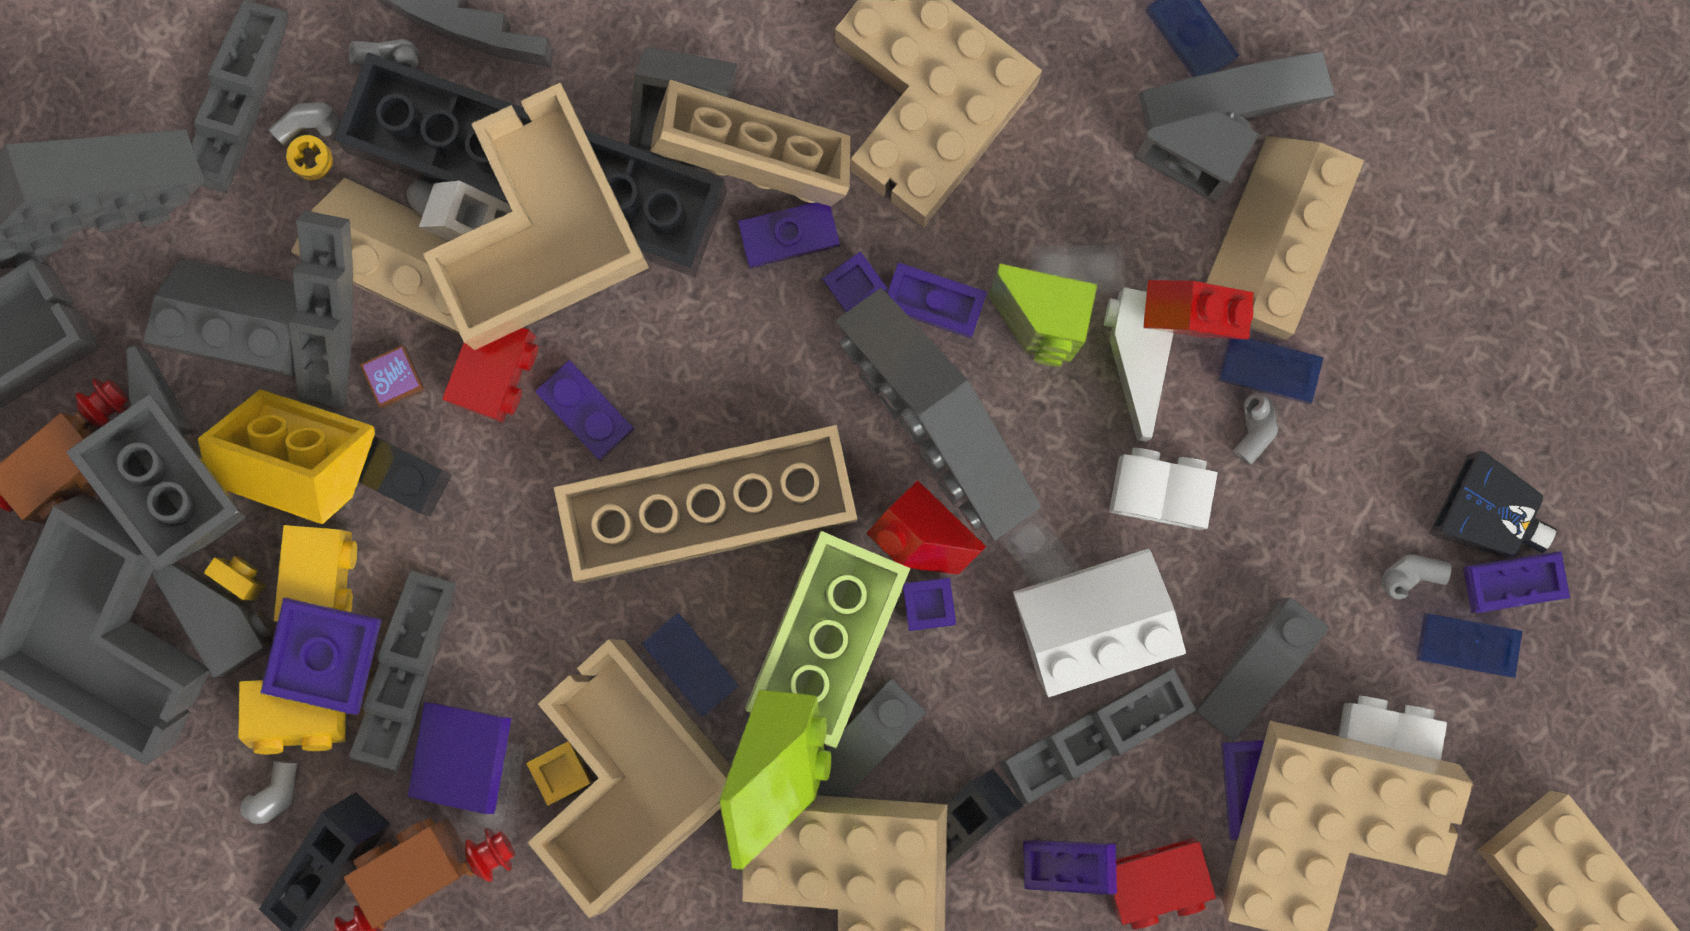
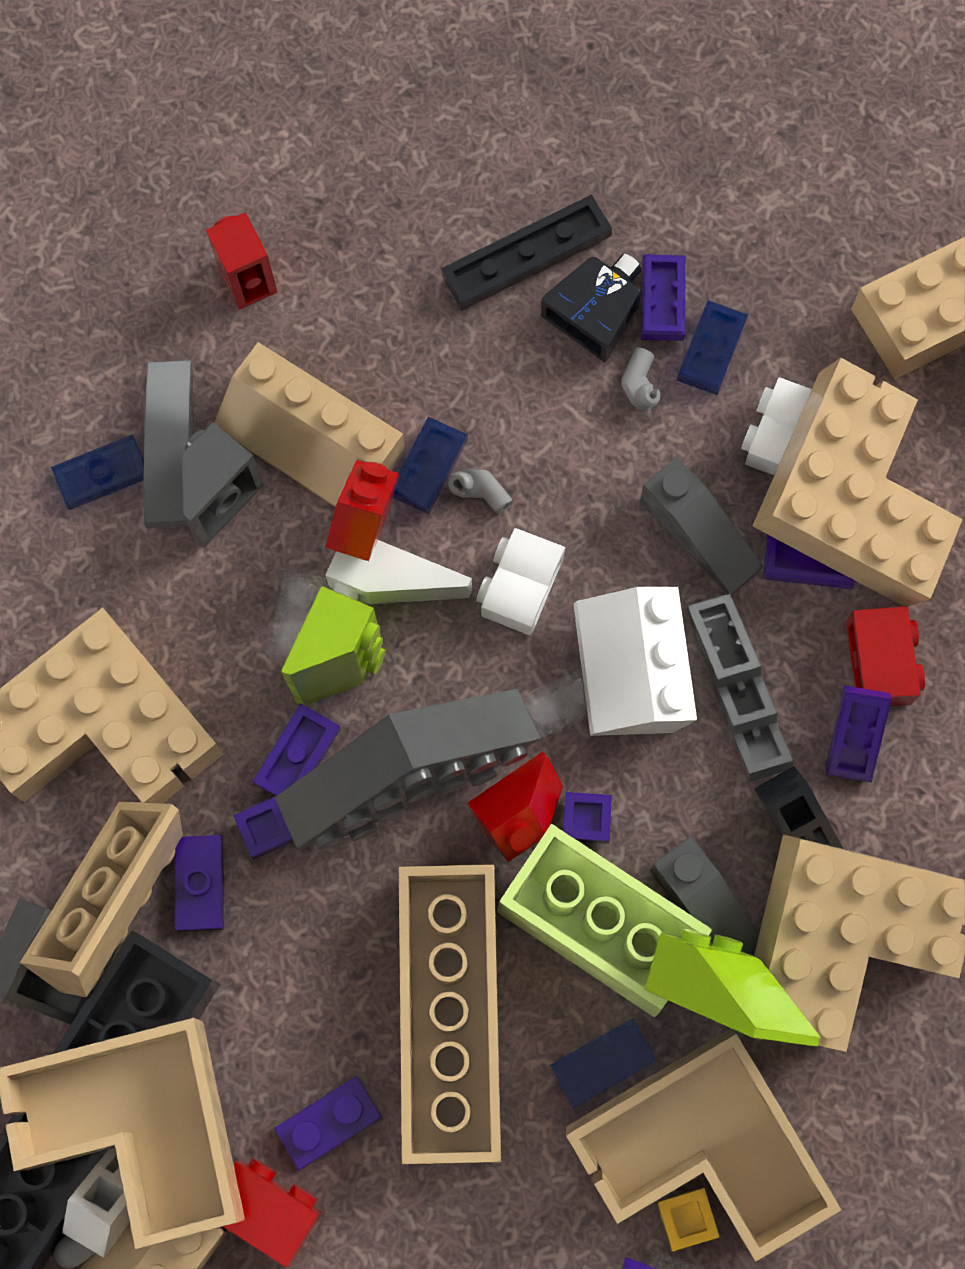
camera: 80 degrees left, 10 degrees down
(1455, 120) = (241, 260): none -> red brick
(1537, 425) = (526, 252): none -> black plate

